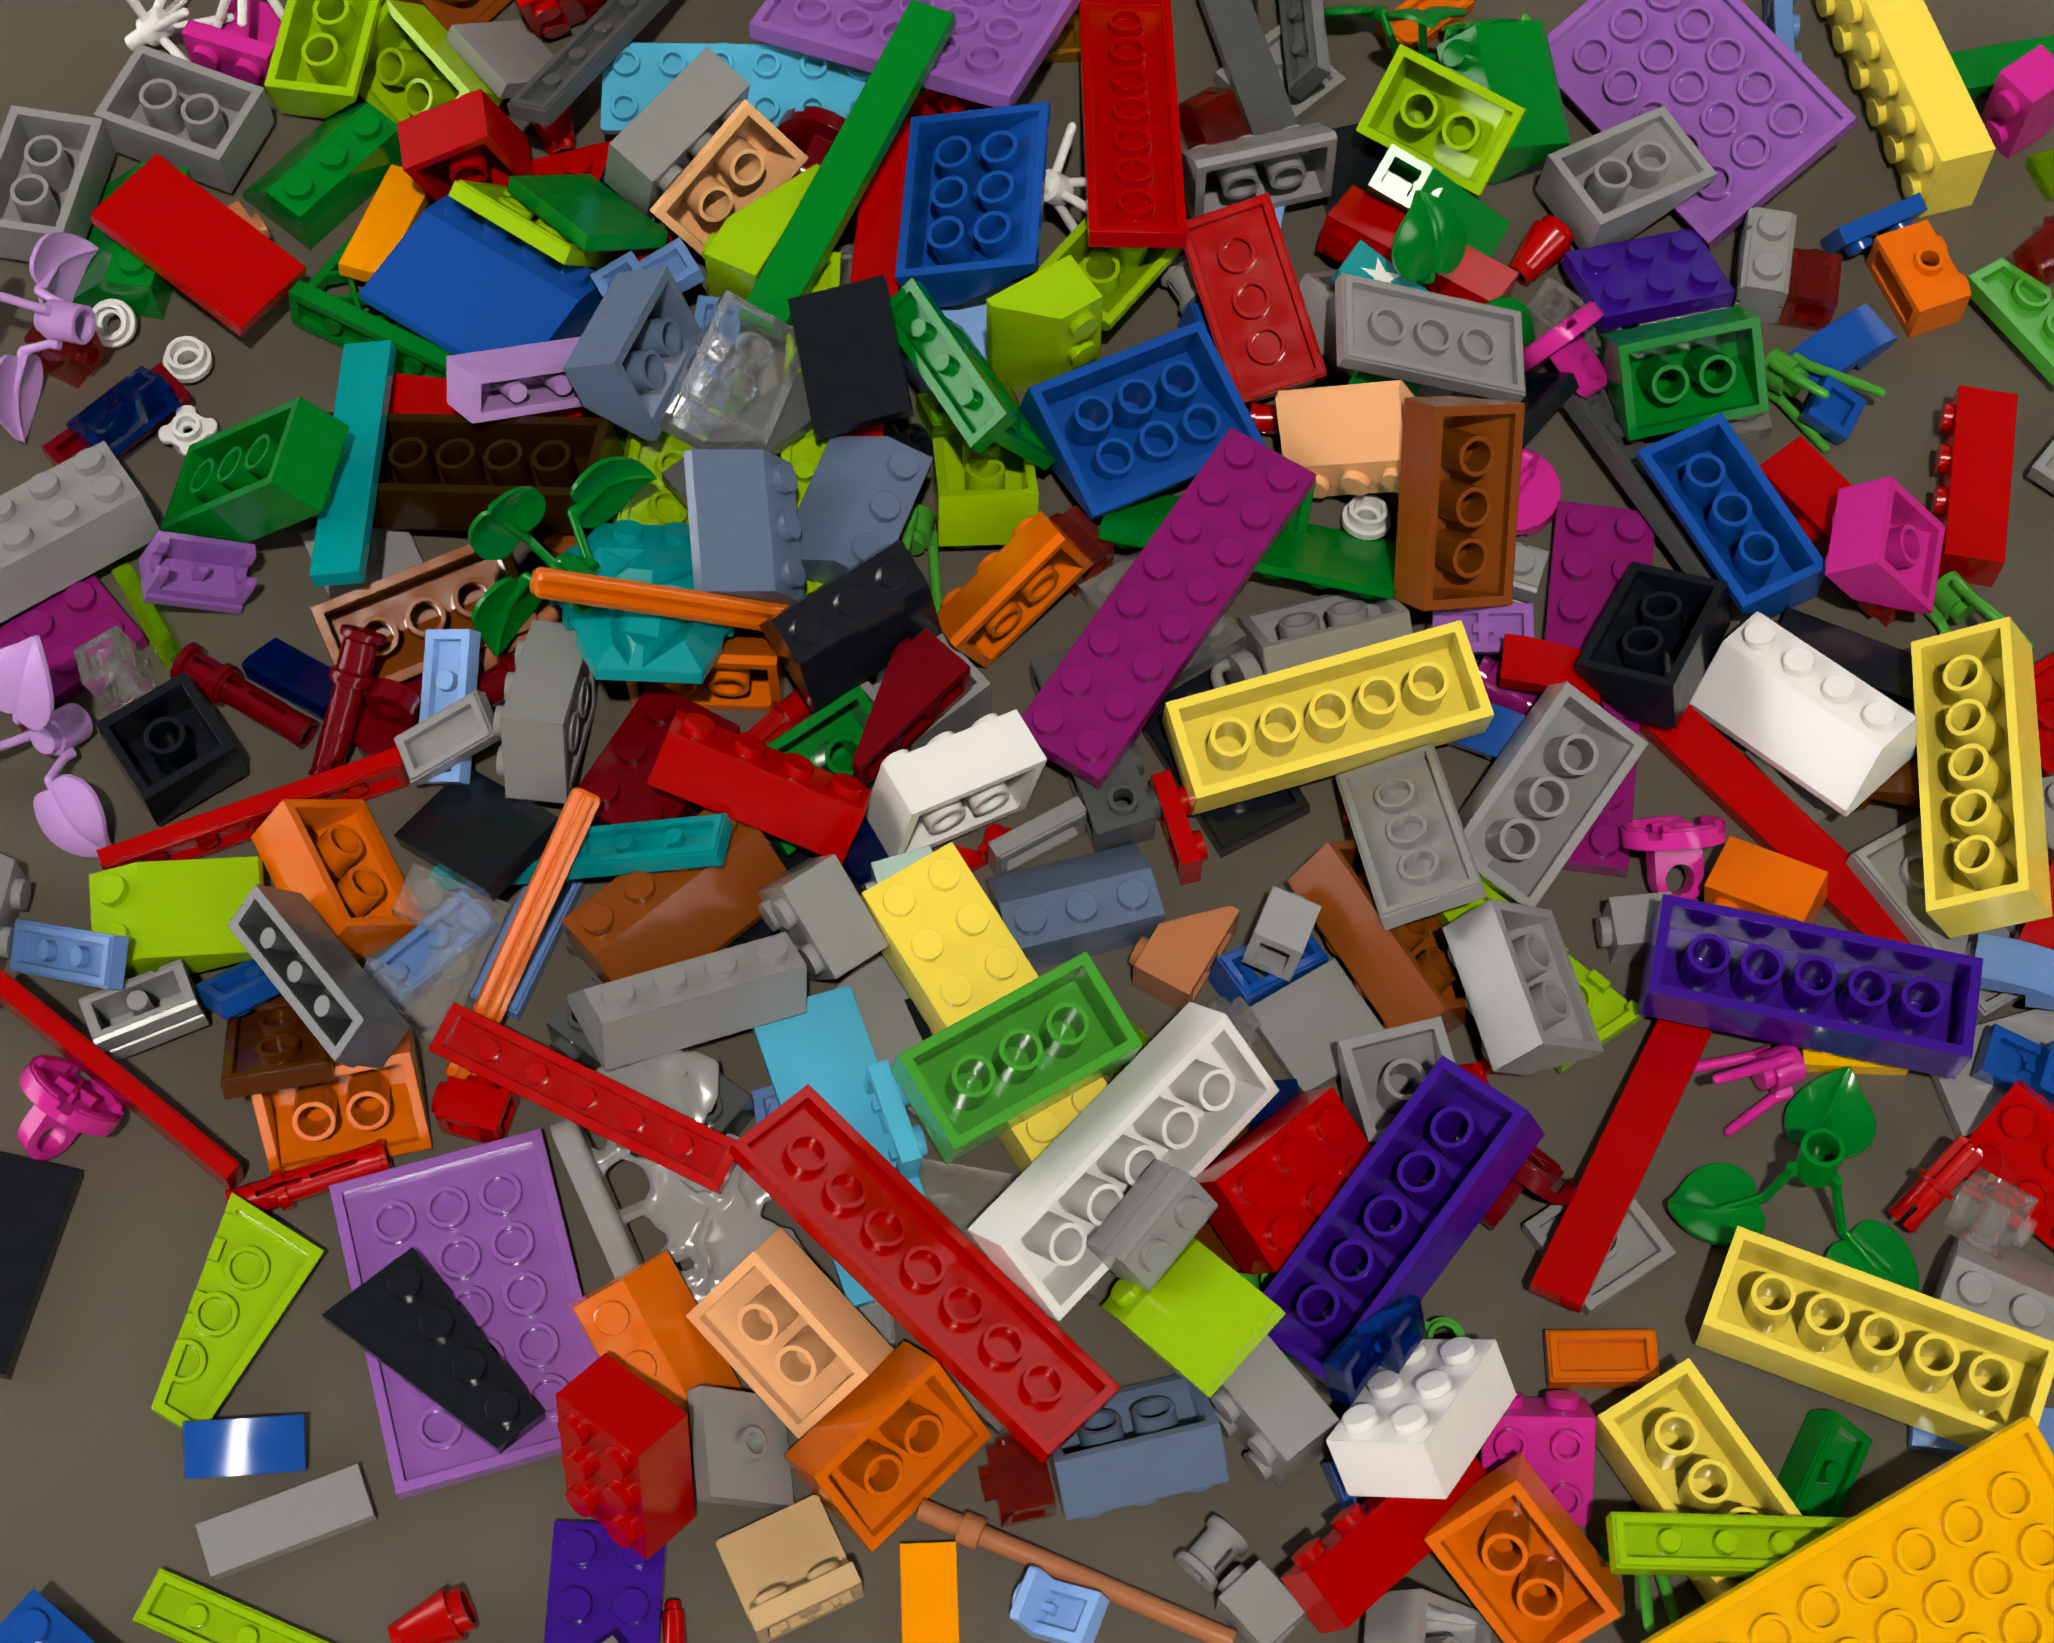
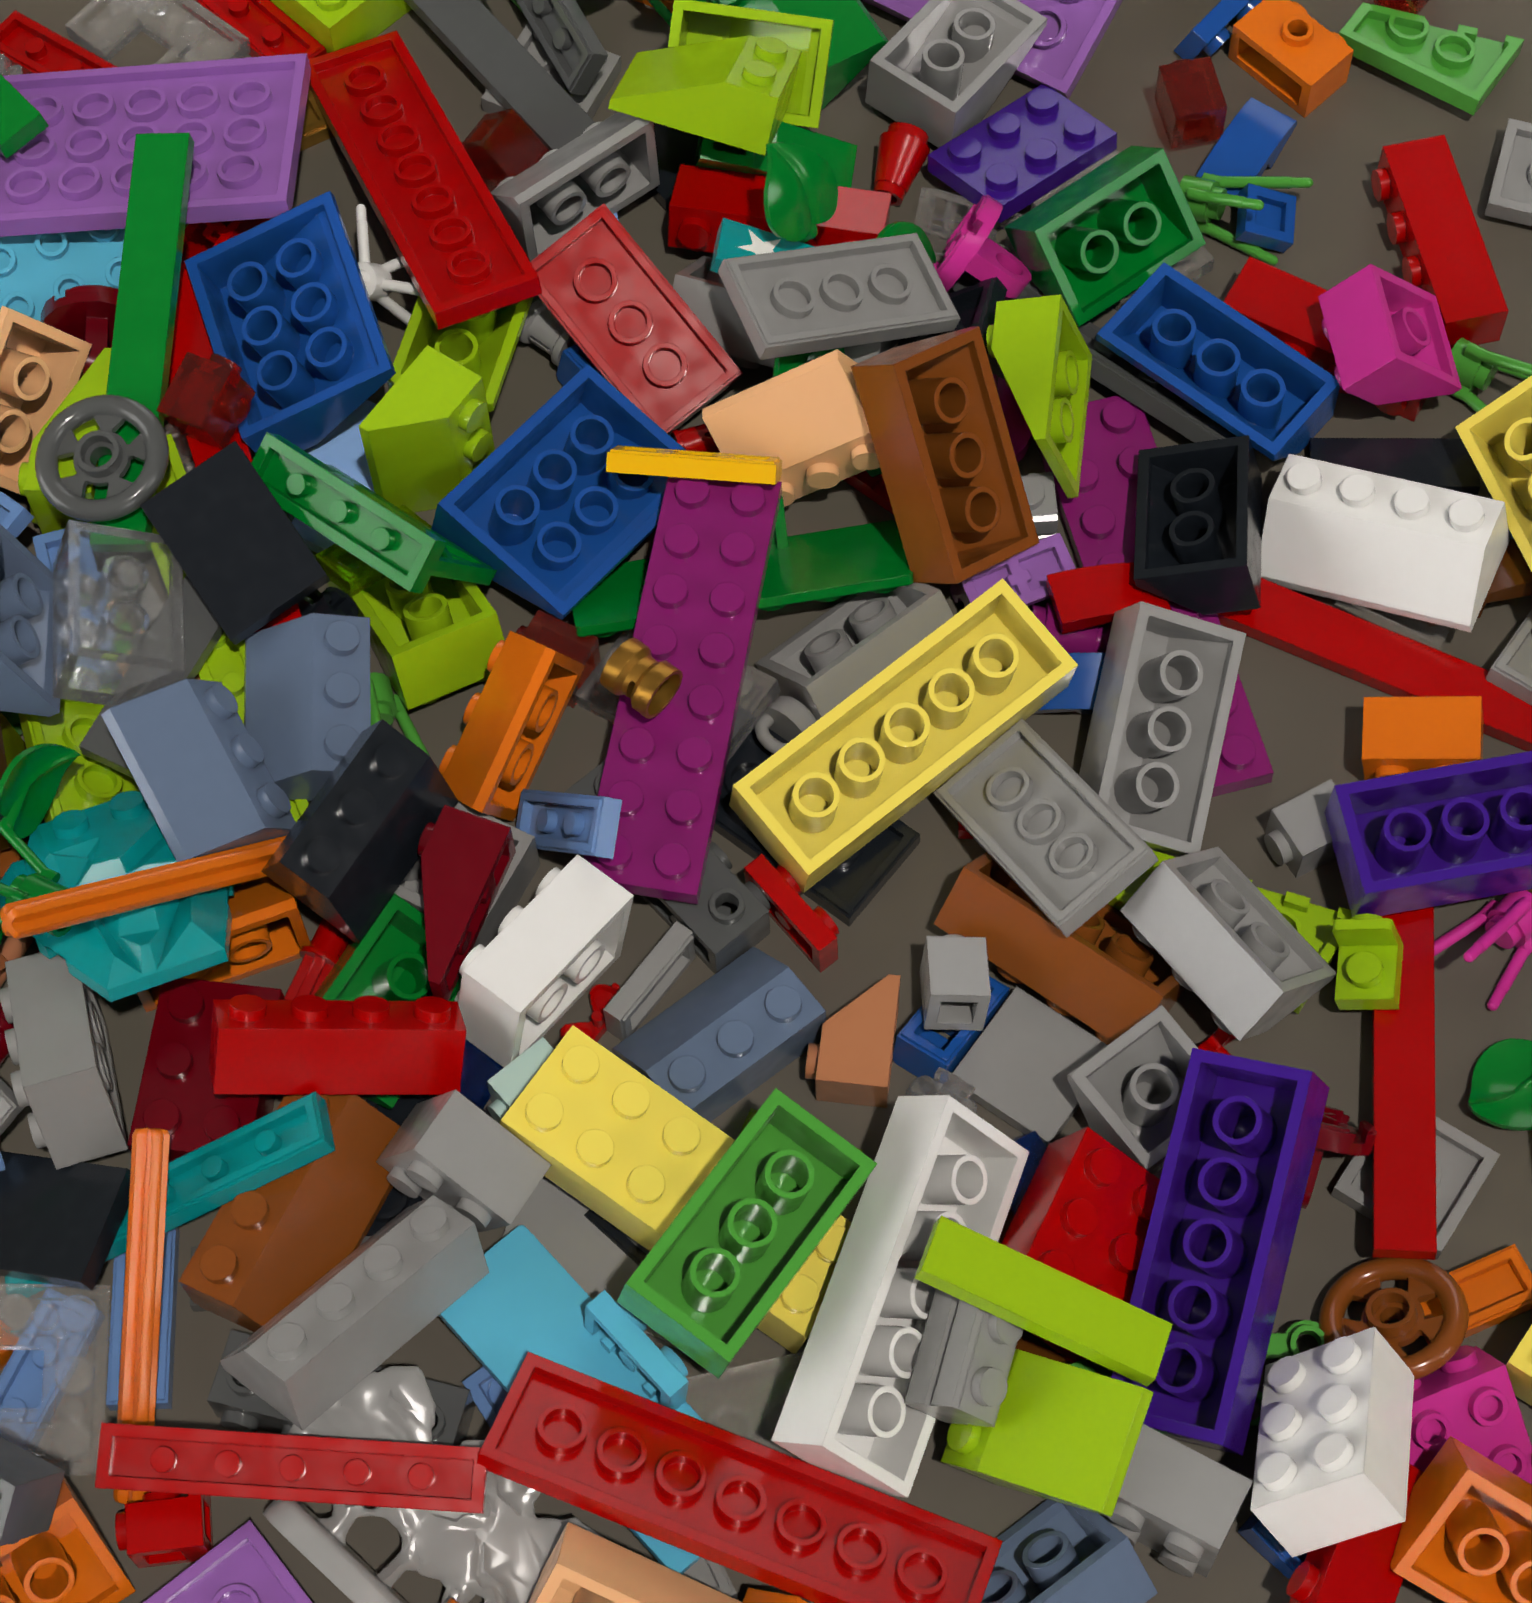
camera: 20 degrees left, 0 degrees up
(748, 226) = (122, 495): none -> dark grey plate
(879, 234) = (207, 399): none -> clear red brick
(1023, 682) = (570, 822): none -> medium blue tile
(1130, 591) = (640, 677): none -> pearl gold wheel
(1229, 1206) = (1044, 1301): none -> lime tile
(1251, 433) = (694, 464): none -> yellow tile
(1366, 517) = (844, 508): white plate -> none
(1380, 1340) = (1260, 1379): clear blue slope -> none
(1400, 131) = (713, 89): none -> lime slope
(1528, 1345) = (1382, 1305): none -> dark orange plate
(1577, 474) = (1049, 377): none -> lime slope
(1633, 1052) = (1368, 963): none -> lime bracket
(1671, 843) = (1309, 728): dark pink tile -> none
(1764, 262) = (1132, 91): light grey brick -> none

